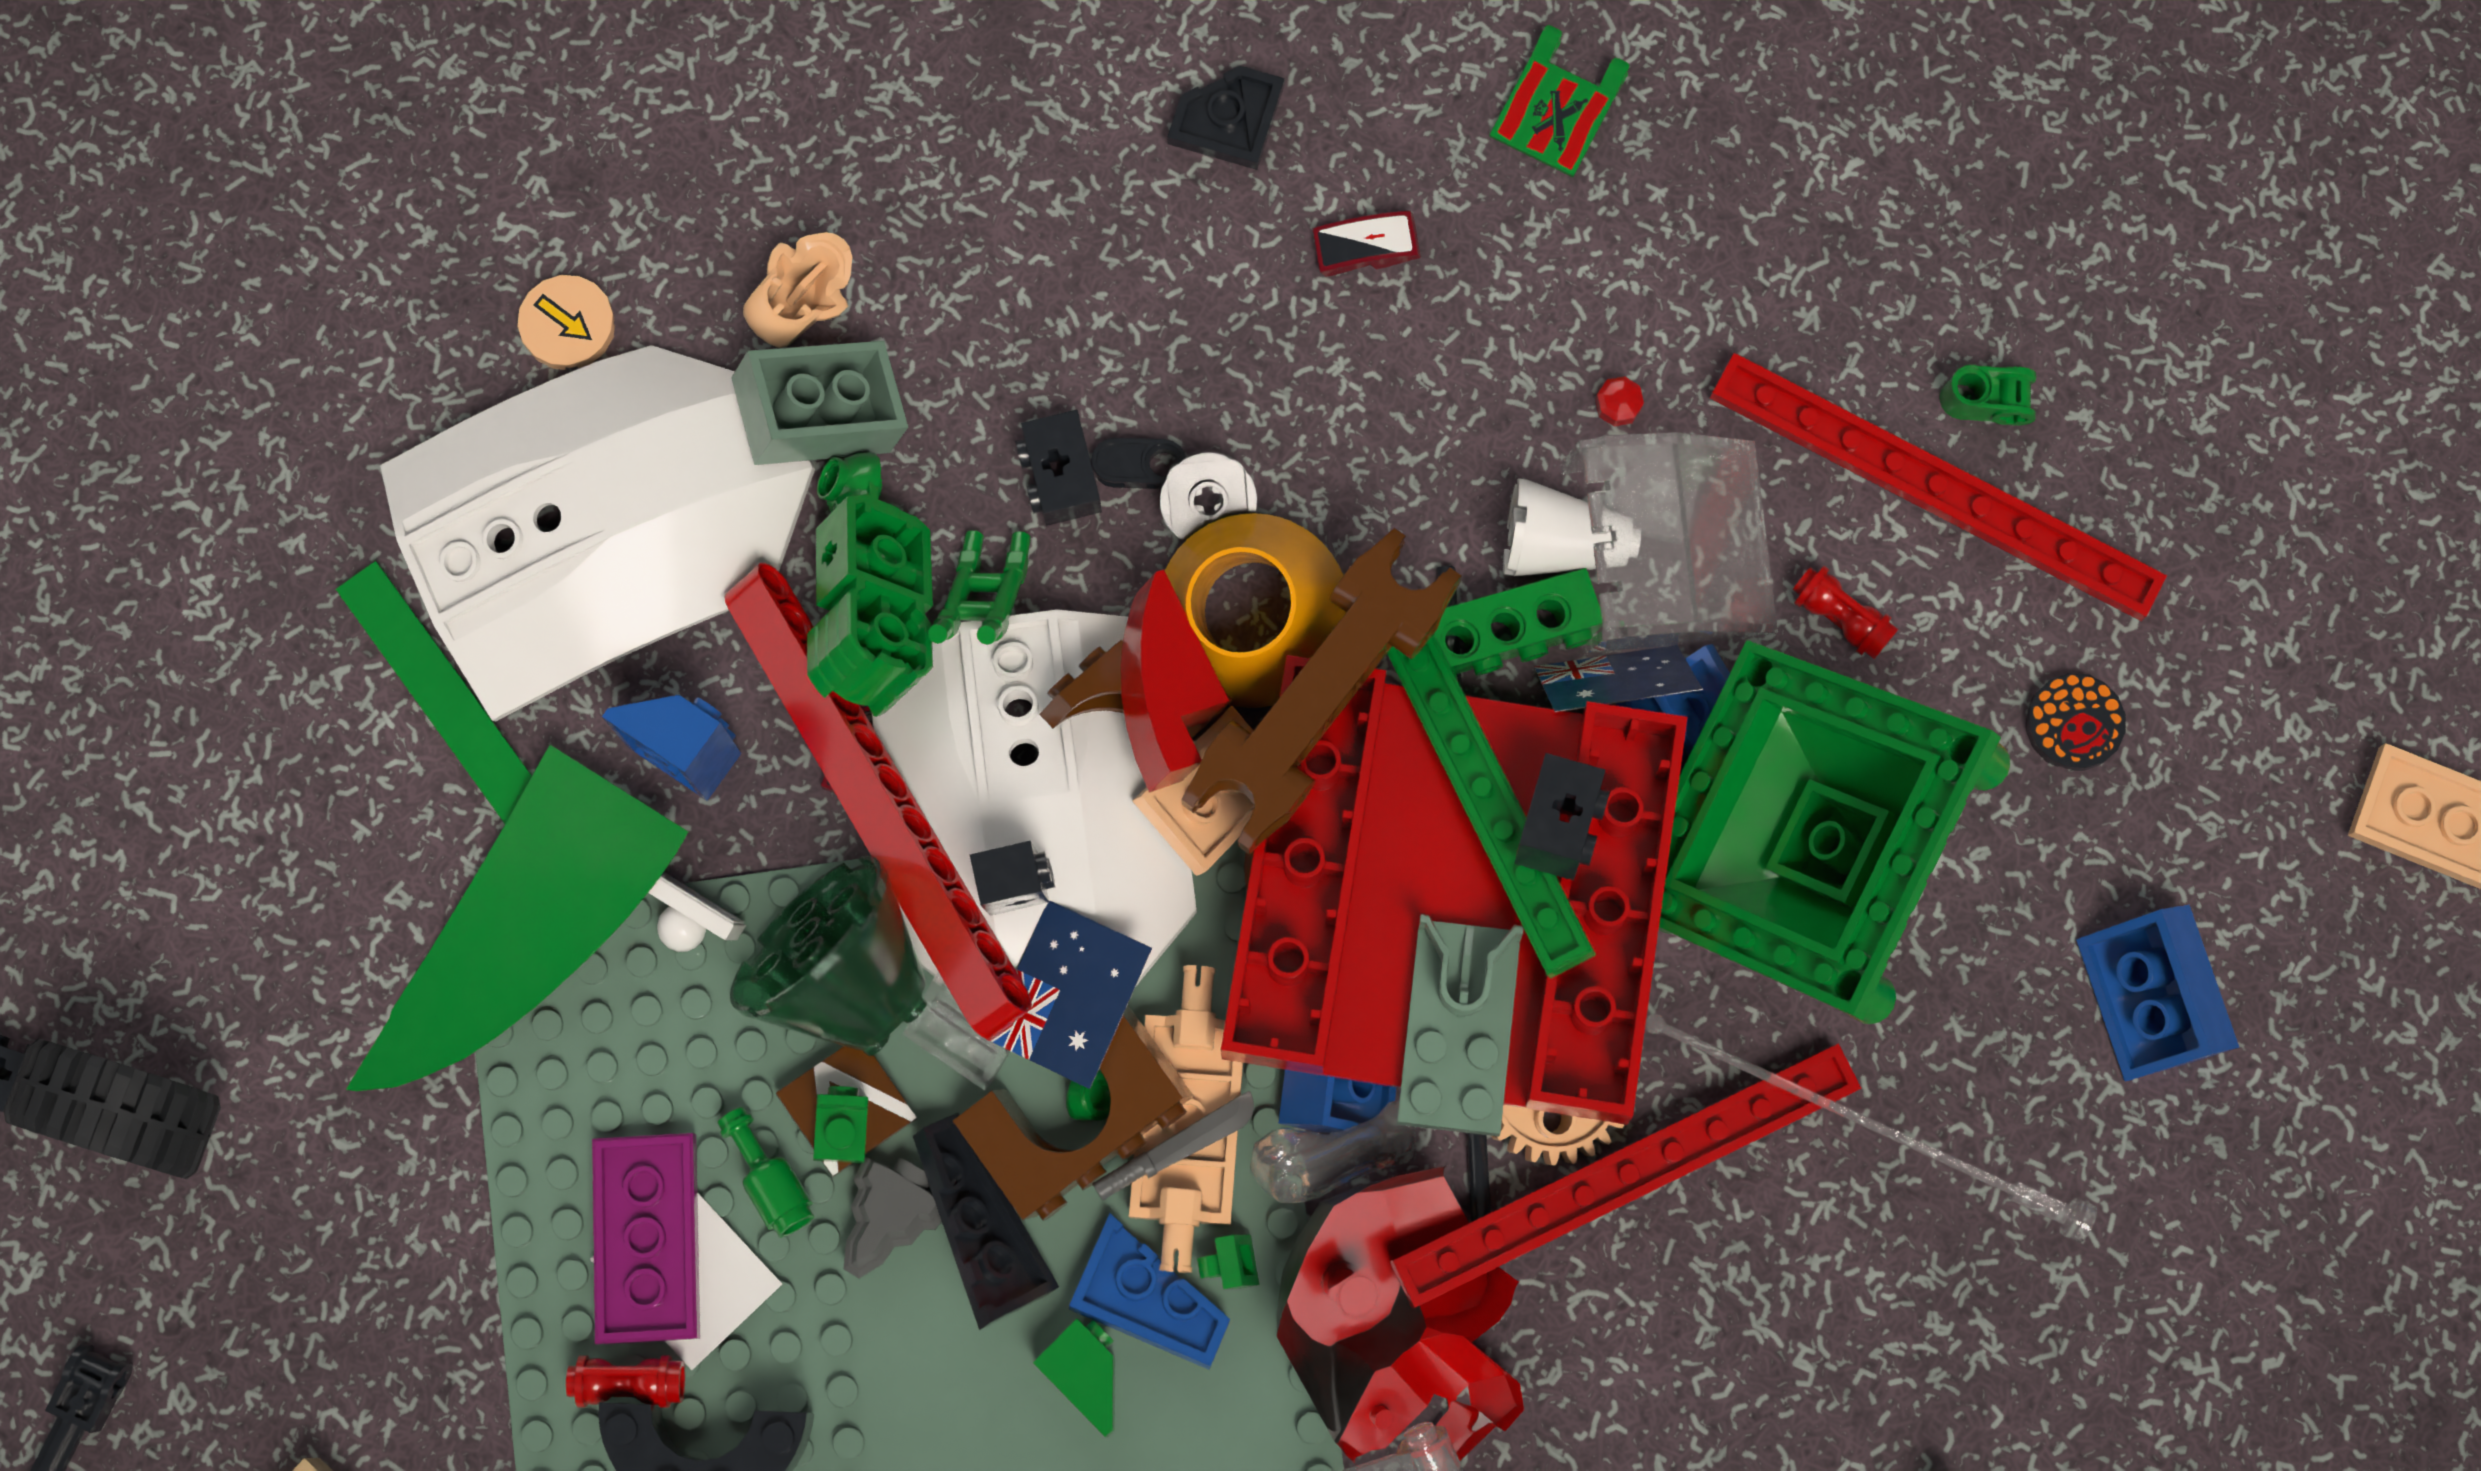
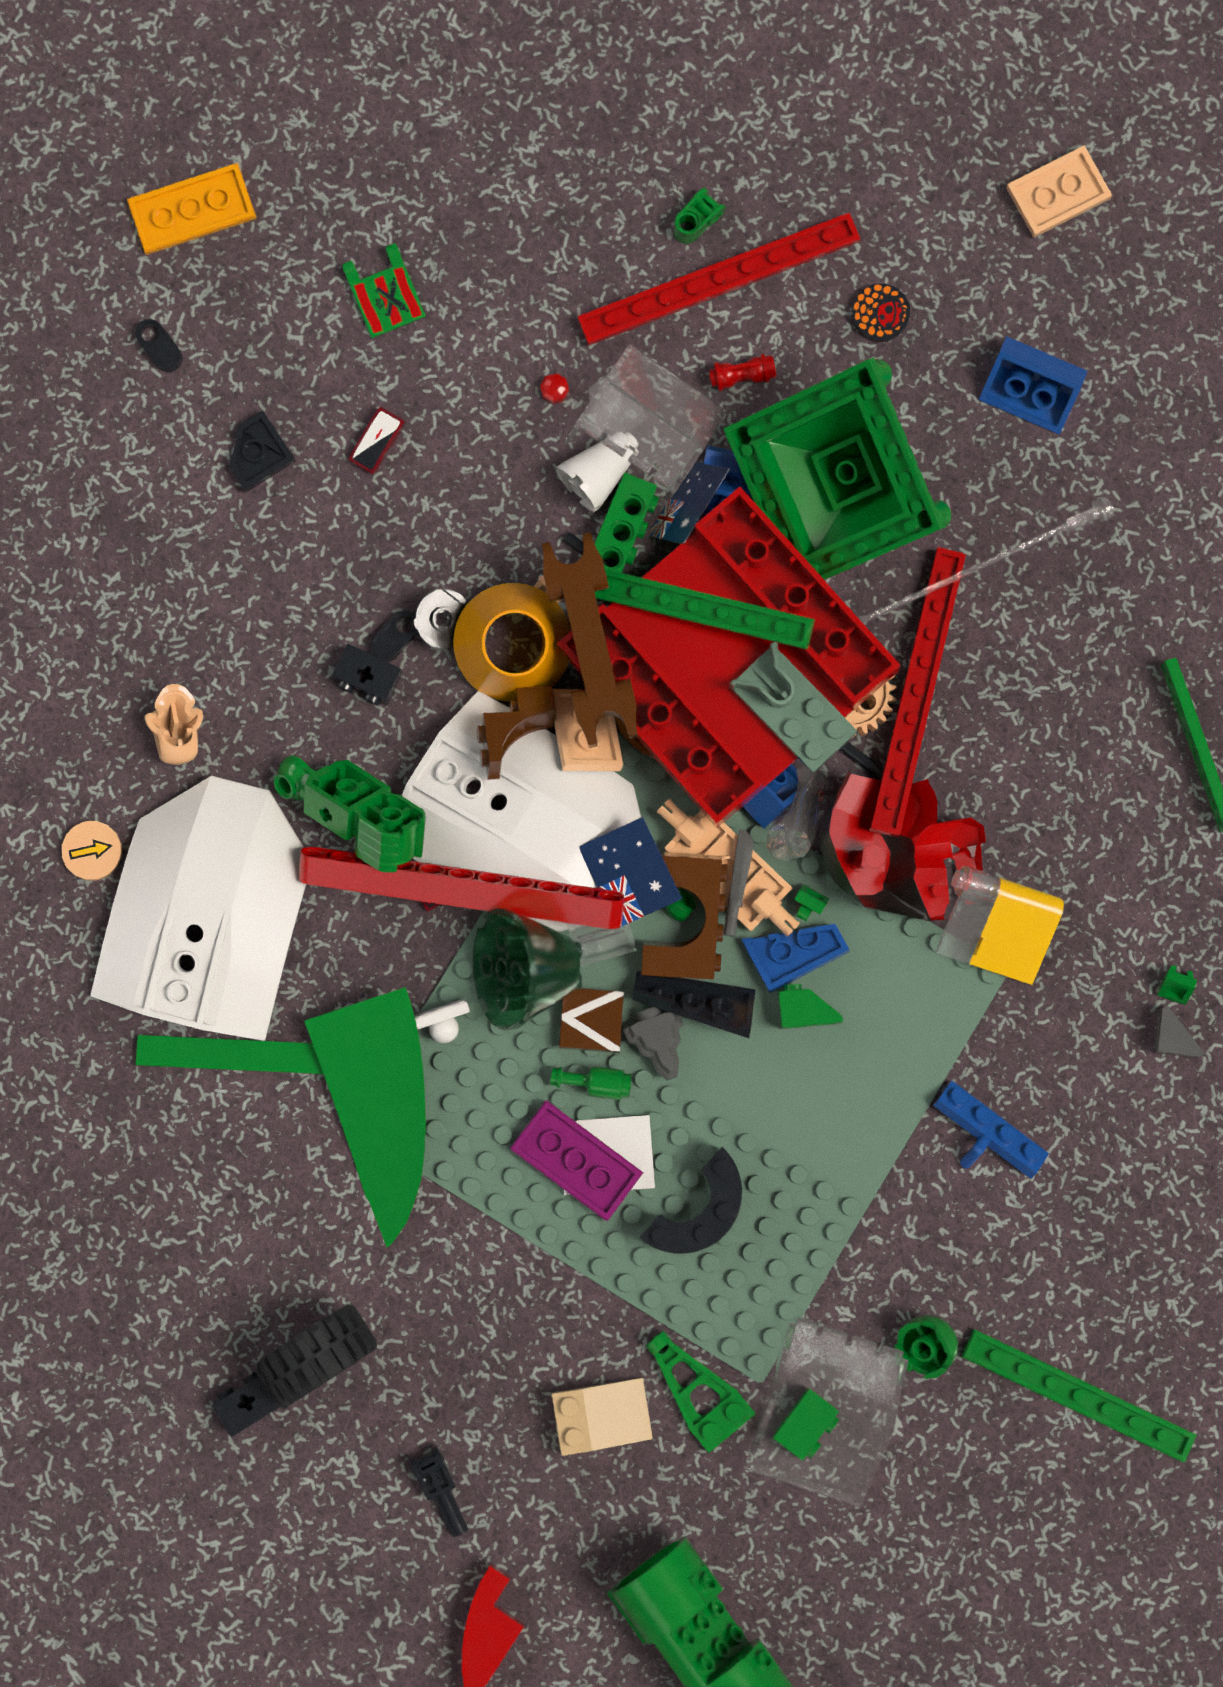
camera: 50 degrees left, 5 degrees up
(650, 1381) = (646, 1209): red piece -> none
(679, 739) = (355, 958): blue slope -> none
(819, 402) = (242, 761): sand green brick -> none
(840, 1125) = (600, 1028): green bracket -> none
(969, 579) = (387, 763): green piece -> none
(1012, 877) = (559, 852): black brick -> none
(1165, 684) = (522, 709): red slope -> none
(1562, 789) = (745, 597): black brick -> none

